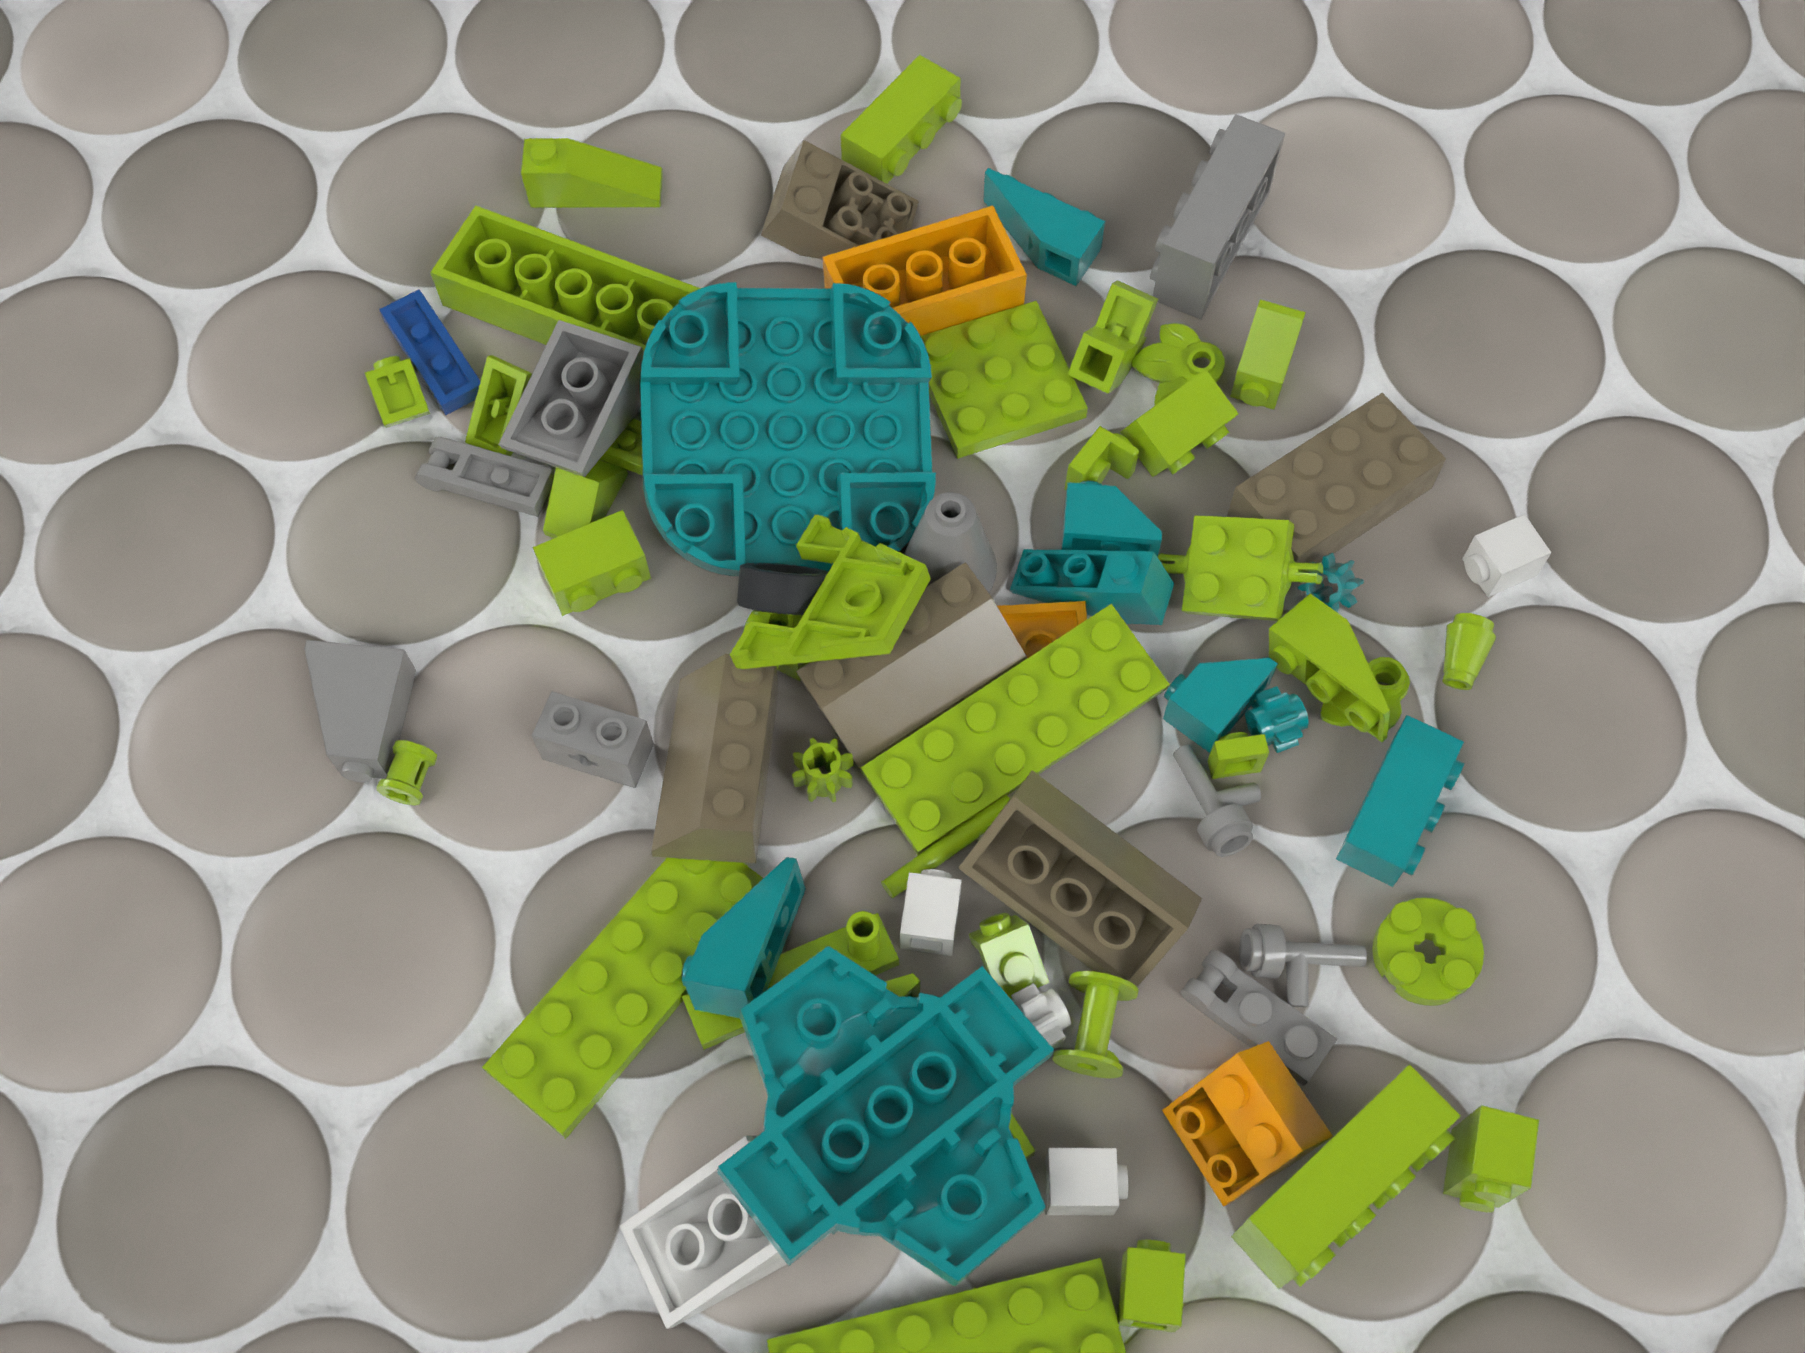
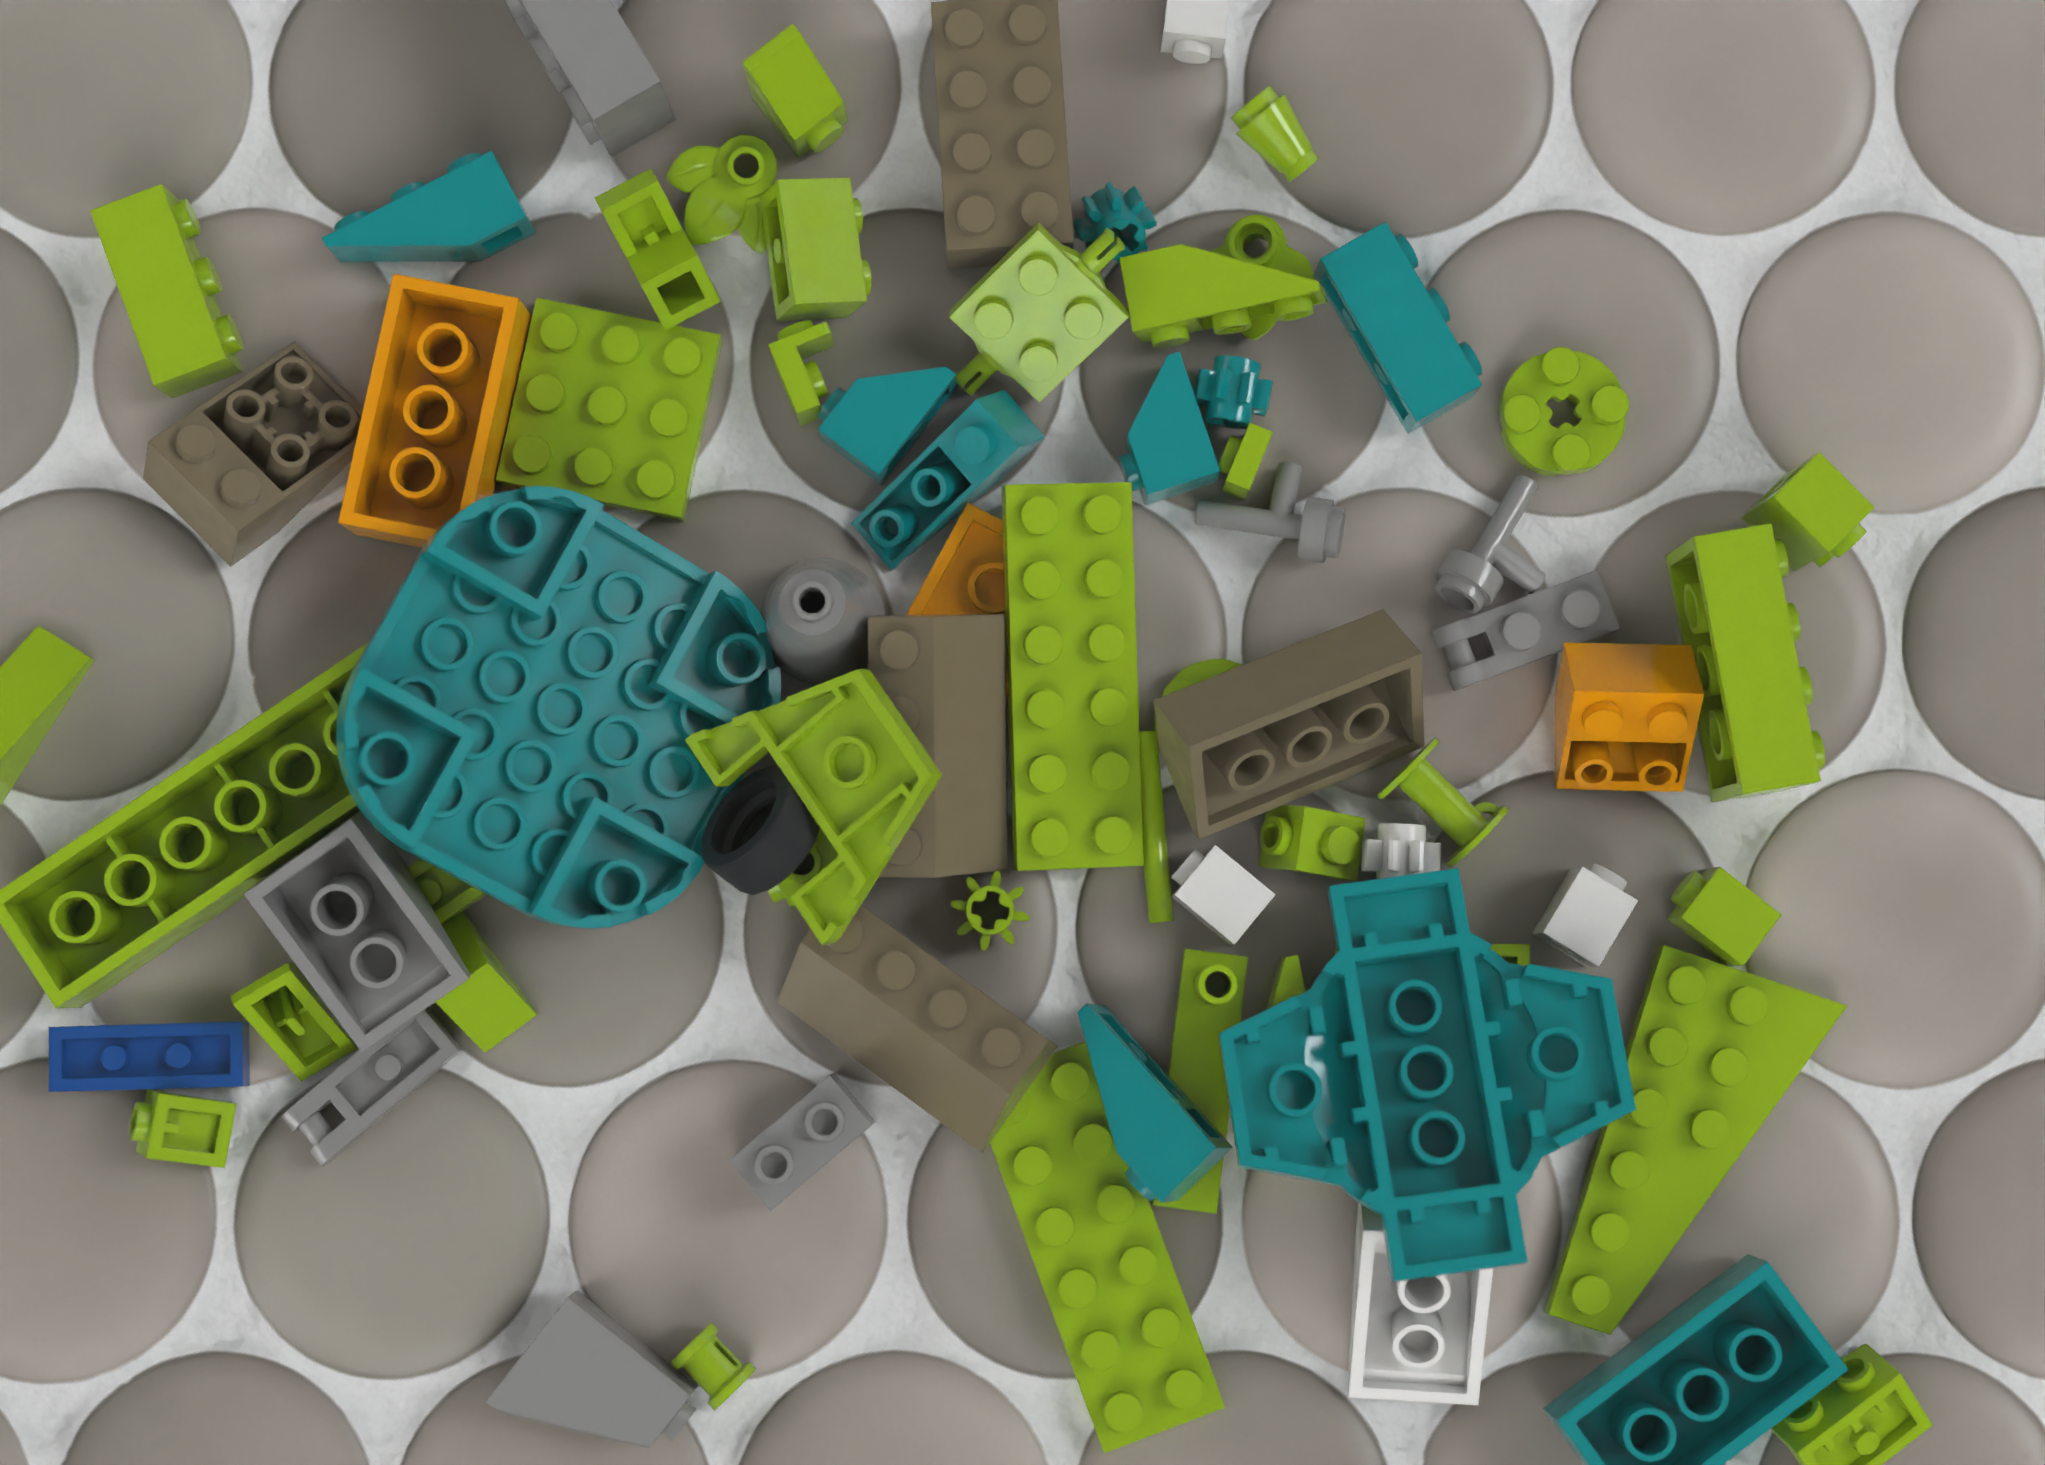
camera: 60 degrees left, 20 degrees up
(592, 563) = (575, 1022): lime brick -> none

